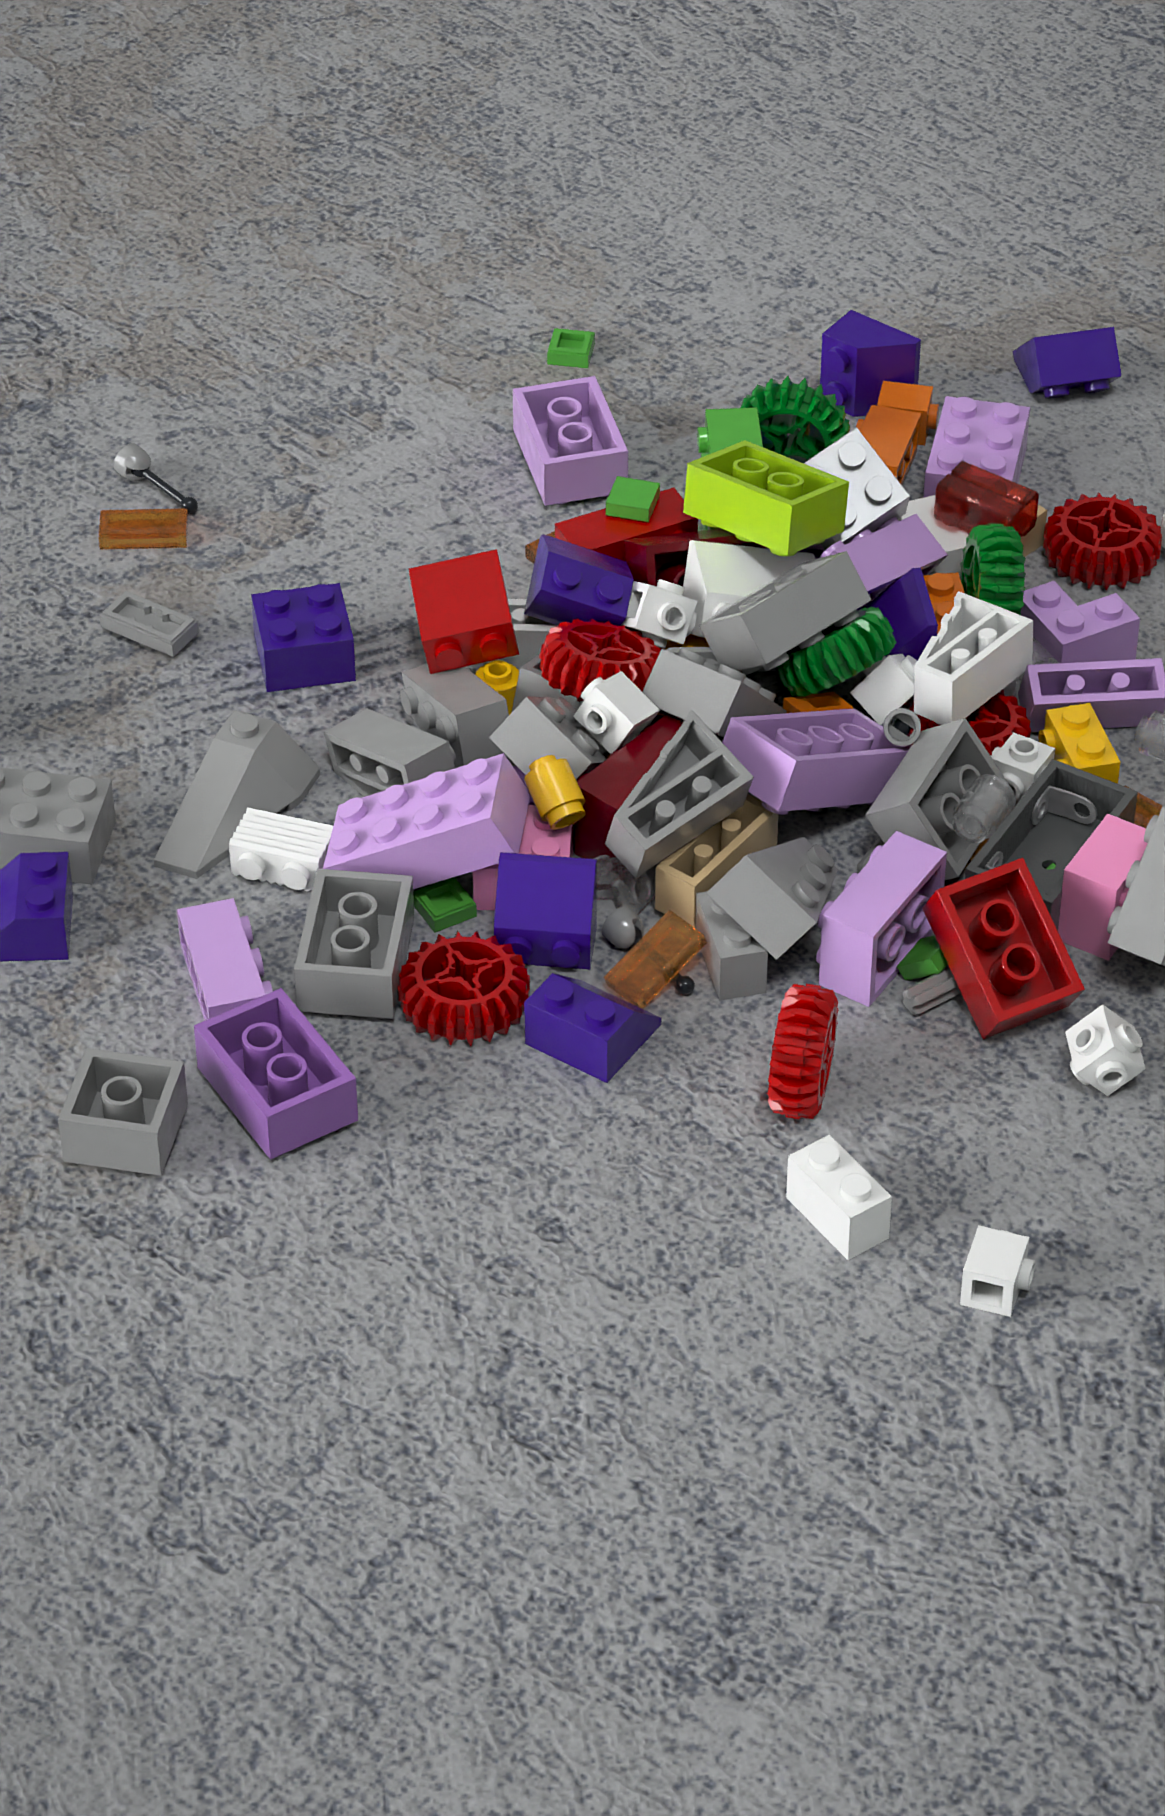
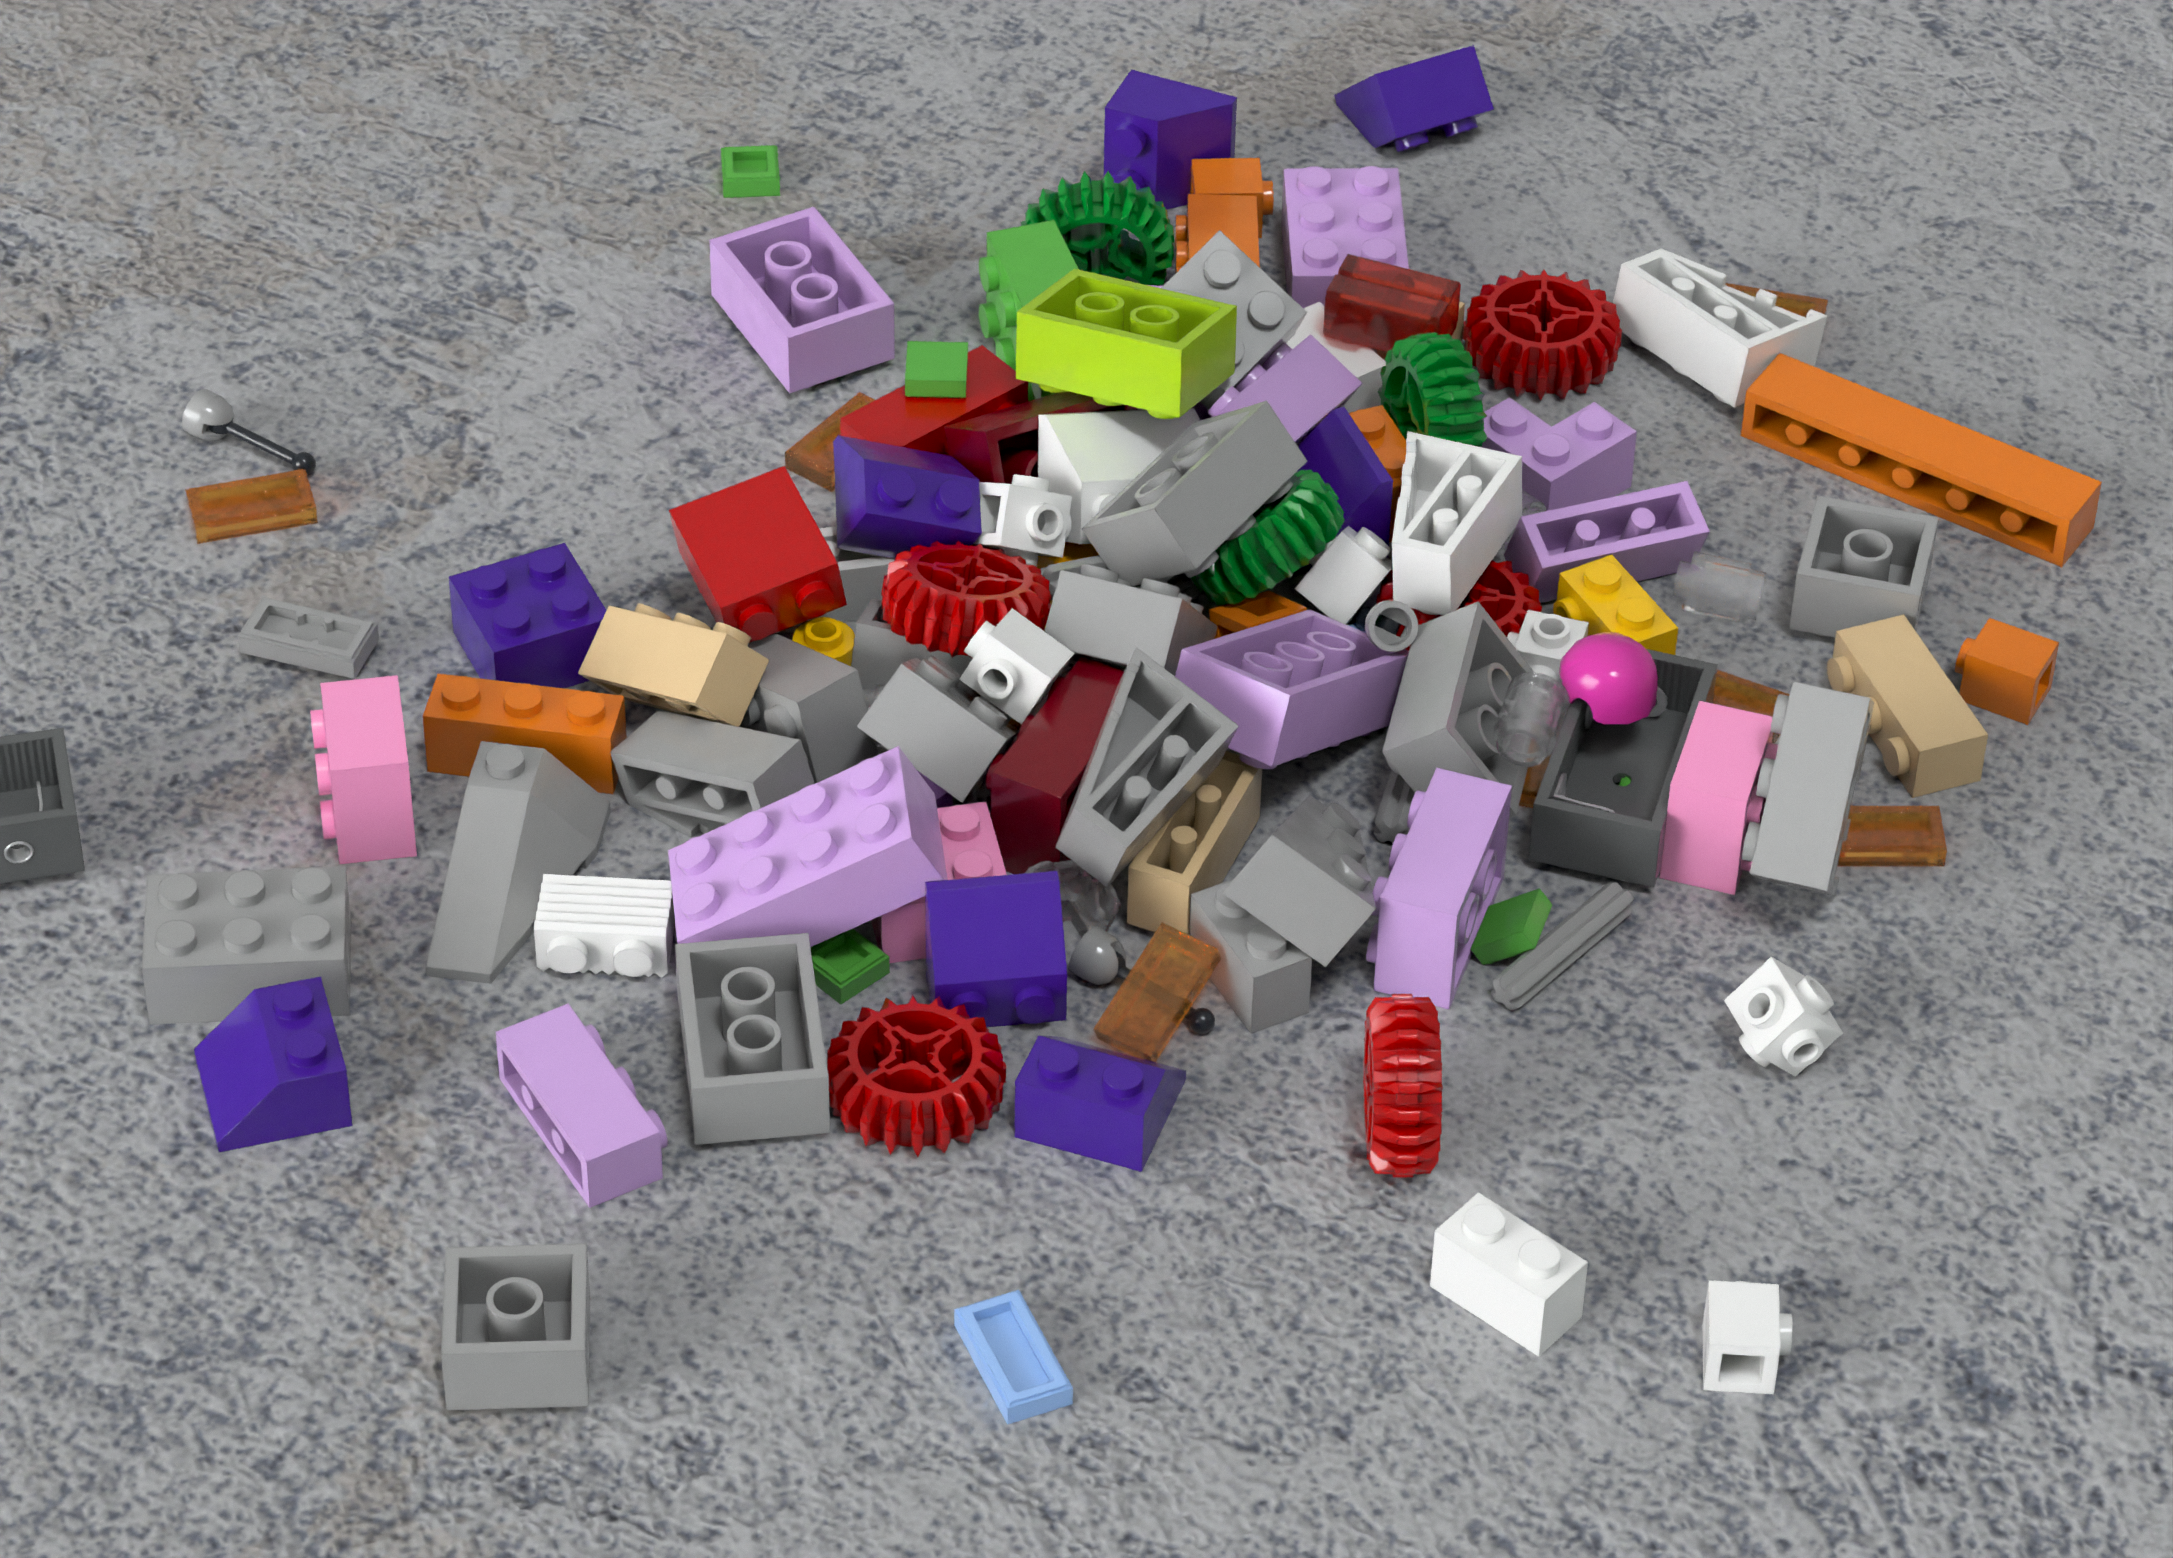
camera: 15 degrees left, 0 degrees up
(150, 717) = (364, 770): none -> bright pink brick
(276, 1073) = (707, 1236): medium lavender brick -> none
(296, 706) = (568, 723): none -> orange brick
(386, 677) = (675, 663): none -> tan brick
(468, 1194) = (1013, 1357): none -> light blue tile
(555, 791) = (970, 786): yellow brick -> none
(1003, 948) = (1616, 902): red brick -> none
(1051, 788) = (1611, 676): none -> dark pink hair

